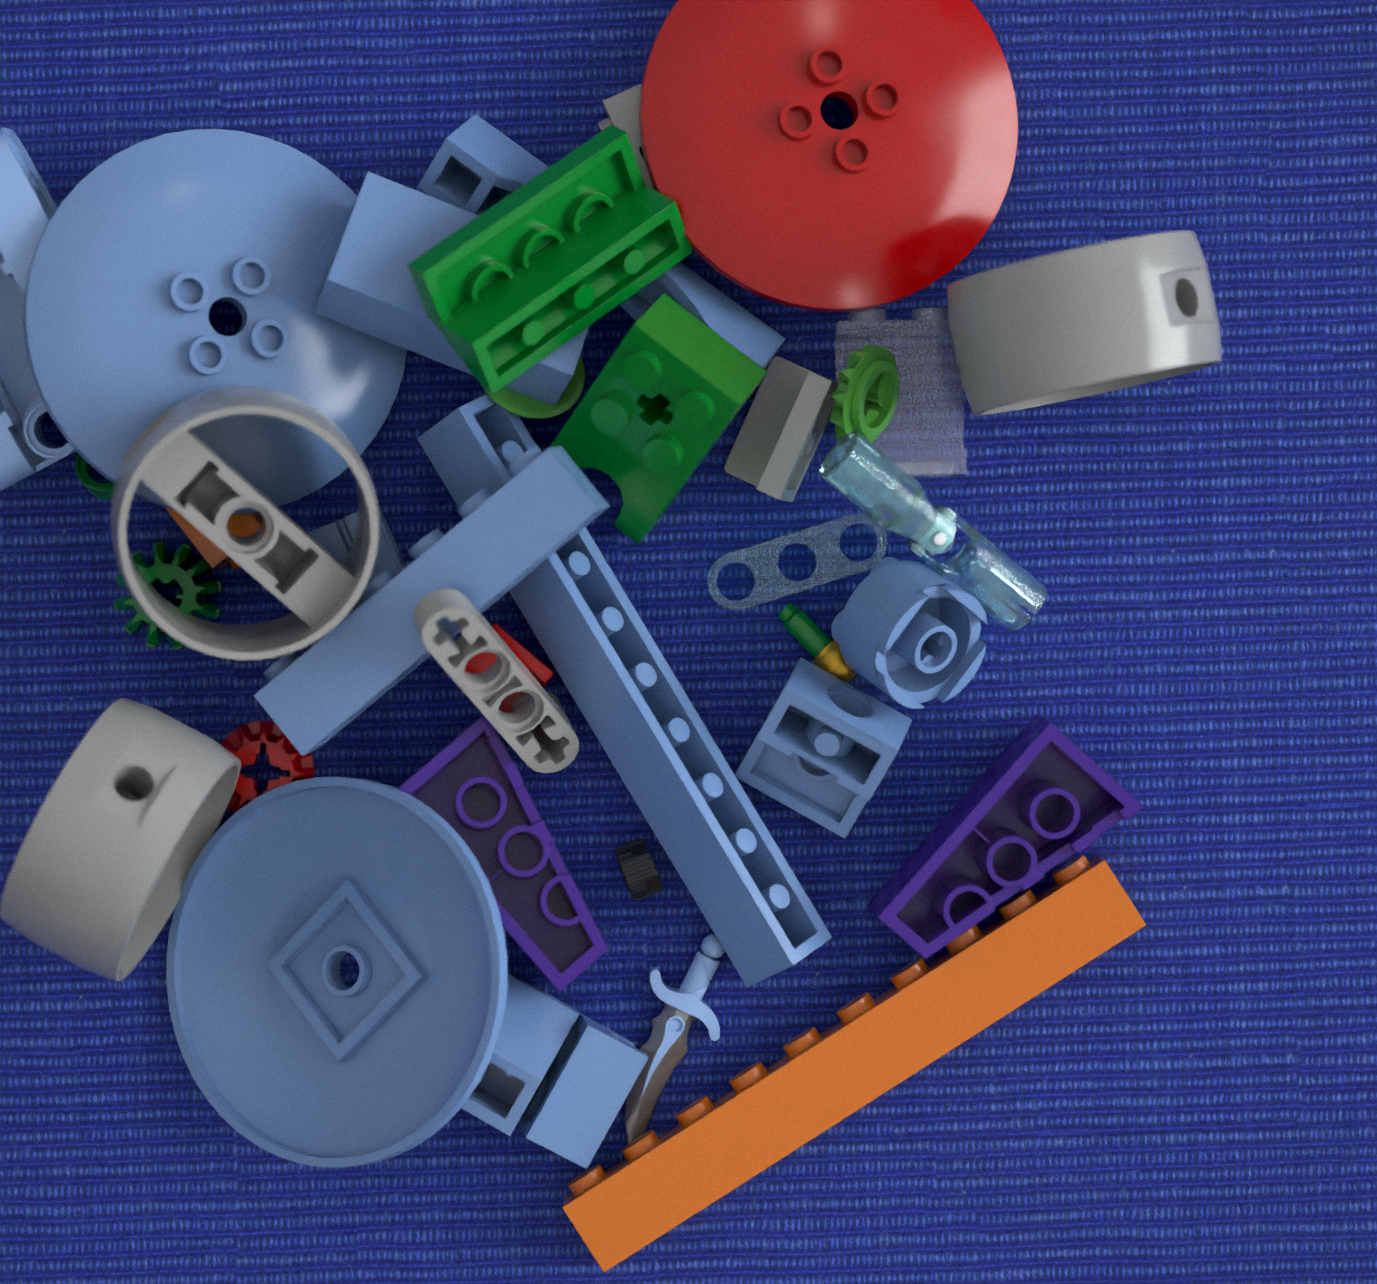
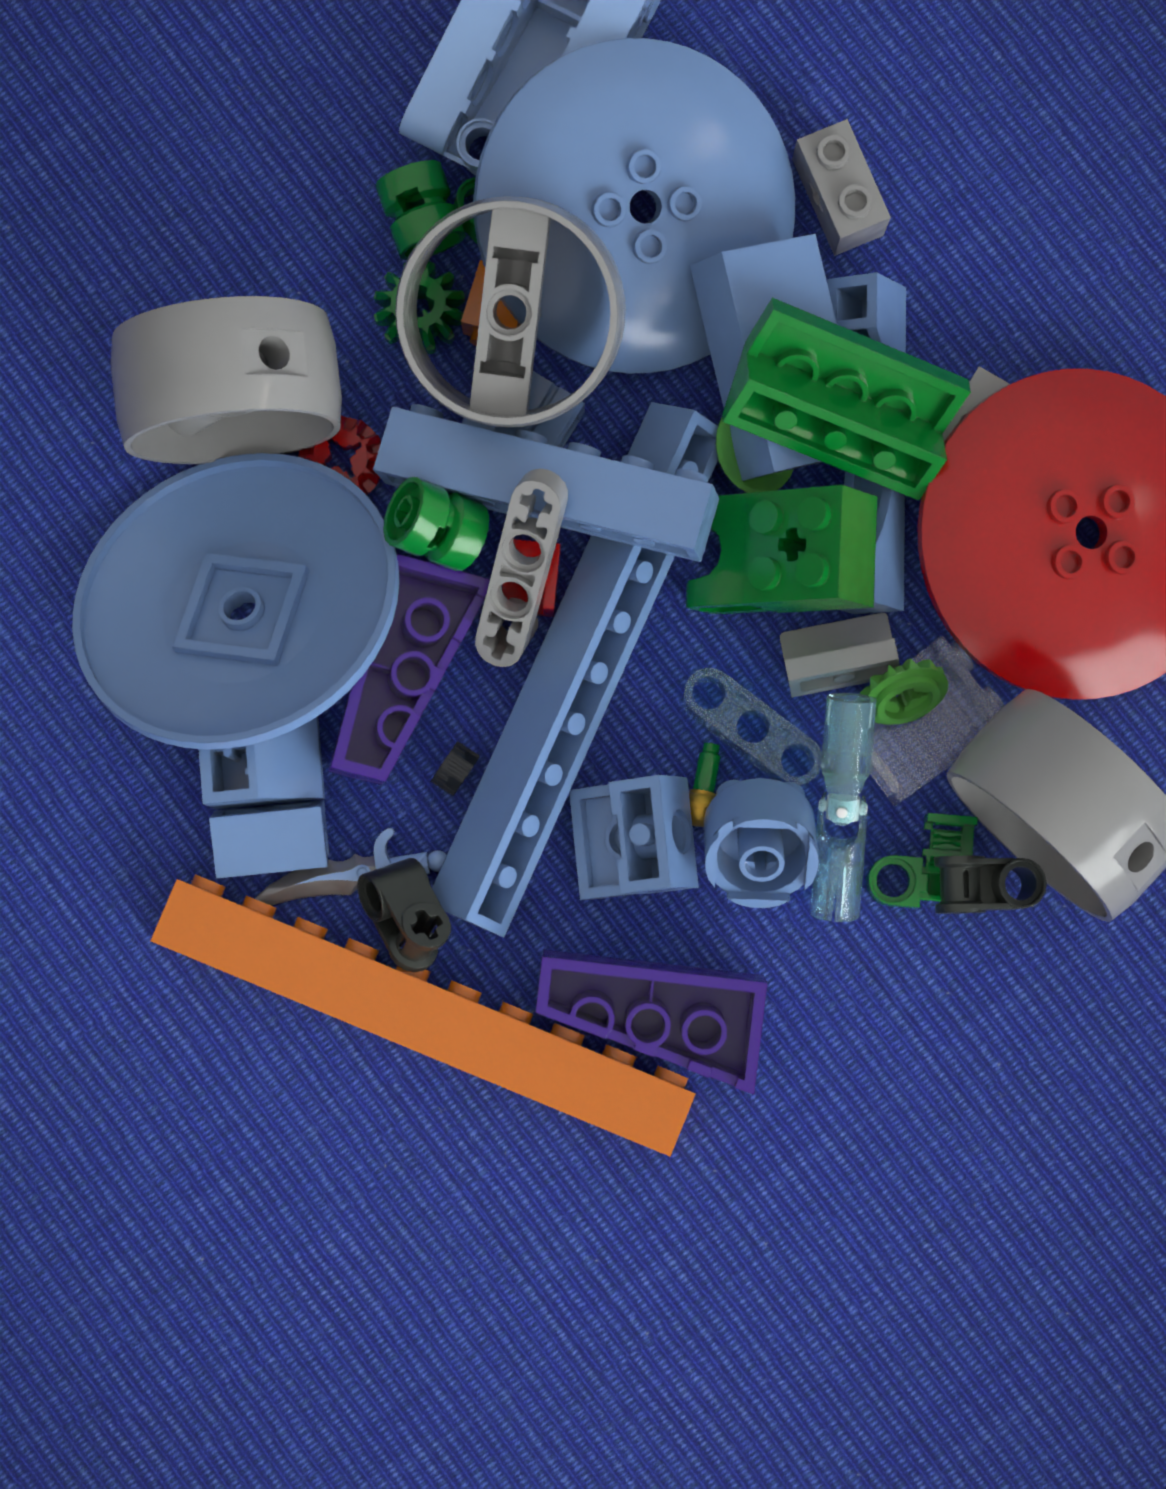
camera: 50 degrees right, 5 degrees down
(45, 535) = (417, 200): none -> green wheel
(333, 107) = (840, 187): none -> light grey brick
(397, 733) = (436, 524): none -> green wheel
(744, 1014) = (405, 910): none -> pearl dark grey piece
(1060, 475) = (925, 881): none -> green piece
(1094, 455) = (978, 884): none -> pearl dark grey piece

